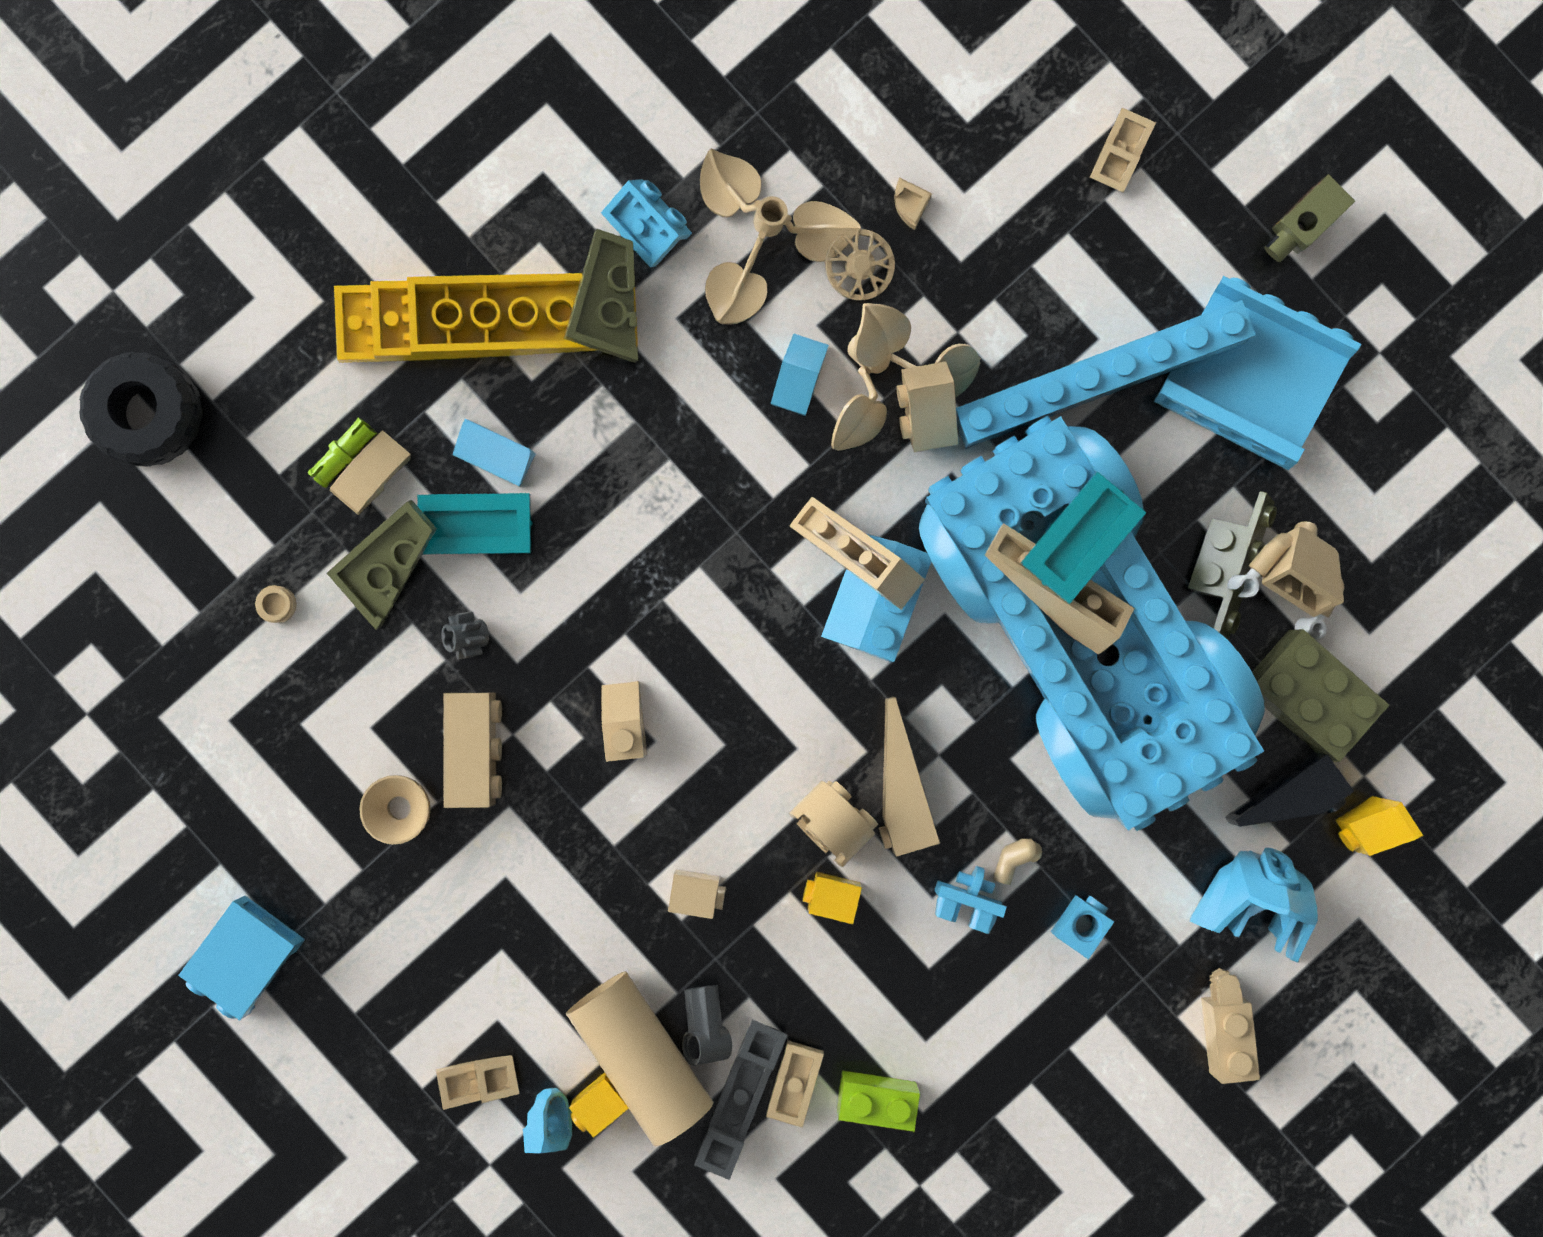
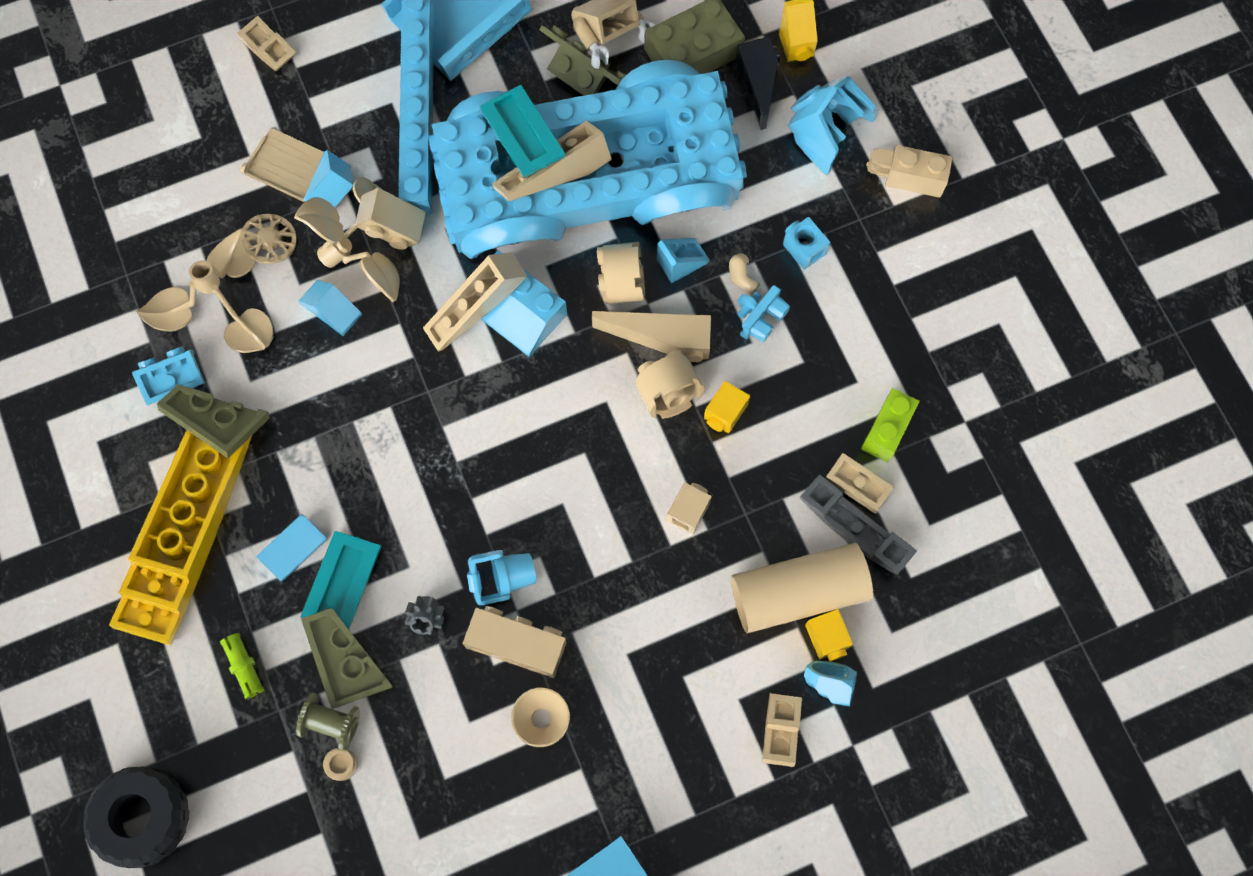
camera: 65 degrees left, 15 degrees down
(310, 575) = (328, 721): none -> olive hose
(369, 471) = (267, 649): tan slope -> none
(545, 715) = (509, 573): none -> medium azure piece
(623, 722) = (538, 517): tan slope -> none
(706, 1037) = (802, 535): dark grey piece -> none
(910, 202) = (239, 191): tan tile -> none
(958, 310) = (331, 180): none -> medium azure slope
(958, 715) = (621, 273): none -> tan brick
(966, 252) = (283, 164): none -> tan piece
(1010, 778) = (680, 257): none -> medium azure slope

